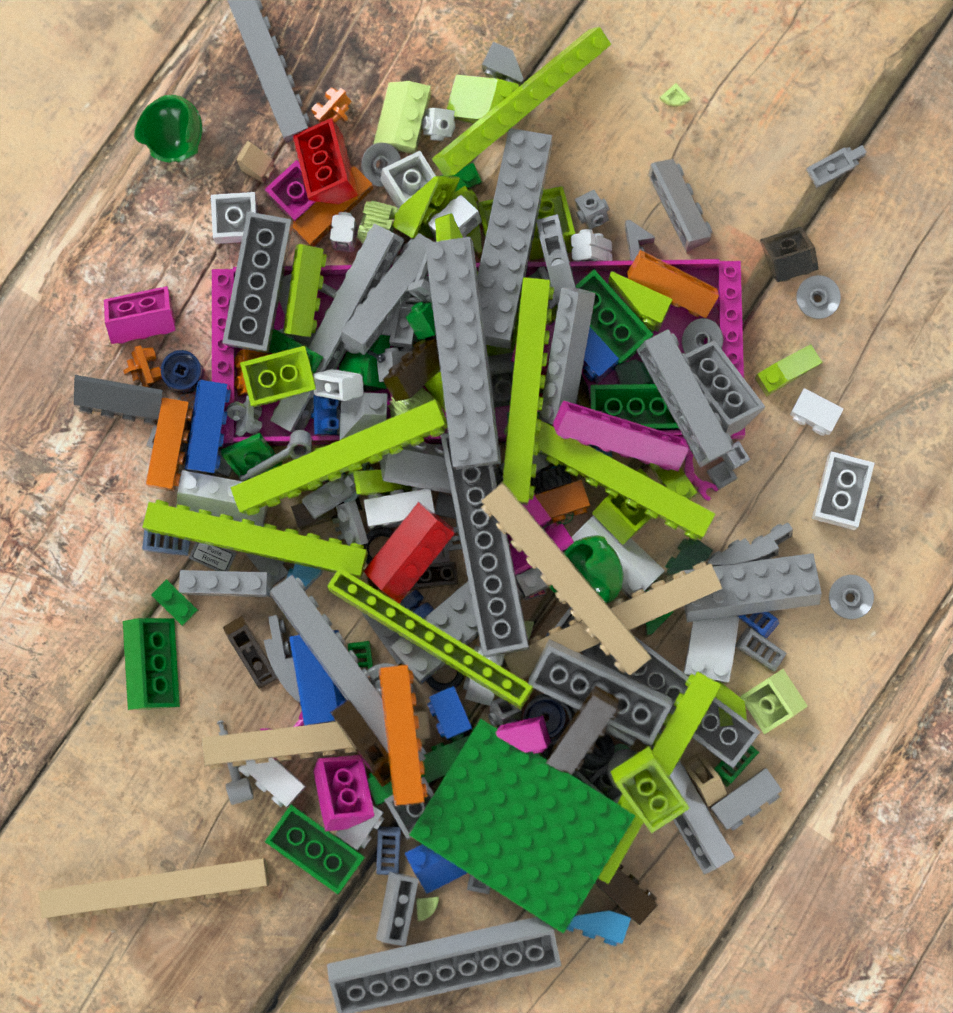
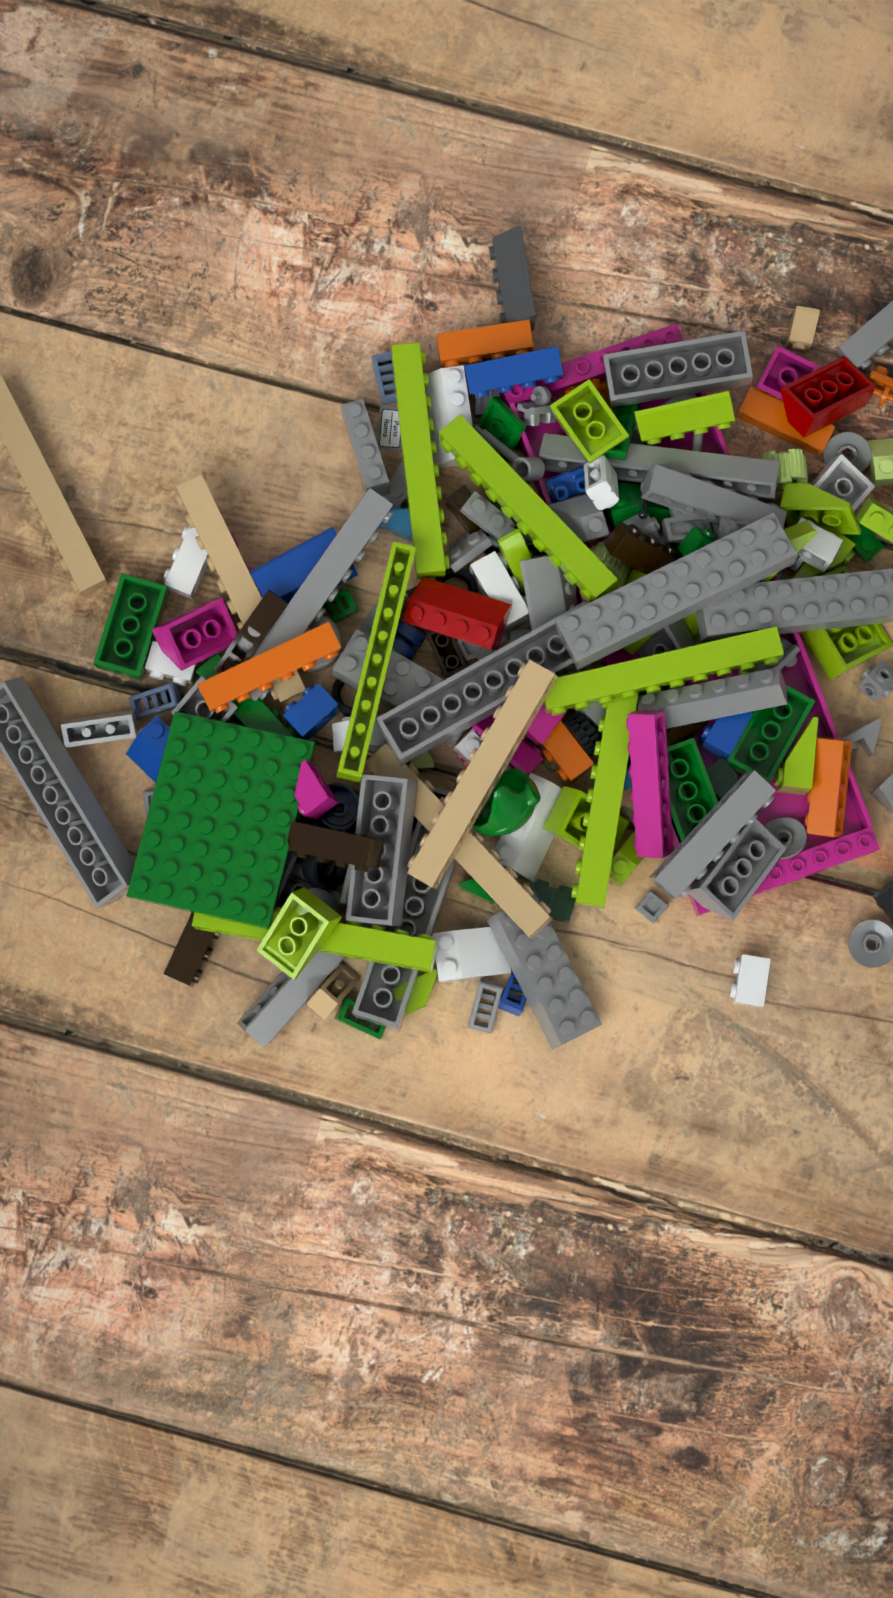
camera: 65 degrees right, 0 degrees up
(139, 315) = (605, 271): dark pink slope -> none
(141, 358) = (564, 288): orange hips -> none
(151, 663) = (261, 405): green slope -> none
(170, 129) = (804, 231): green piece -> none
(172, 367) = (564, 321): dark blue wheel -> none
(174, 602) = (329, 408): green plate -> none
(230, 214) = (738, 317): white brick -> none
(239, 788) = (167, 534): light grey piece -> none
(250, 652) = (306, 496): dark brown slope -> none
(277, 651) = (313, 524): light grey slope -> none
(343, 232) = (762, 438): white brick -> none
(426, 907) = (112, 758): yellowish green tile -> none
(503, 713) = (328, 766): light grey brick -> none
(555, 254) = (815, 655): light grey slope -> none
(590, 246) = (838, 692): white brick -> none
(604, 924) = (153, 939): dark azure slope -> none
(697, 482) = (637, 877): dark pink piece -> none
(736, 456) = (675, 913): light grey tile -> none
(746, 800) = (326, 1041): light grey brick -> none
(760, 549) = (588, 971): light grey slope -> none
(773, 701) = (437, 1036): yellowish green slope -> none
(787, 370) = (785, 938): lime slope -> none
(843, 490) = (678, 1034): white brick -> none
(859, 589) = (583, 1074): light grey dish -> none

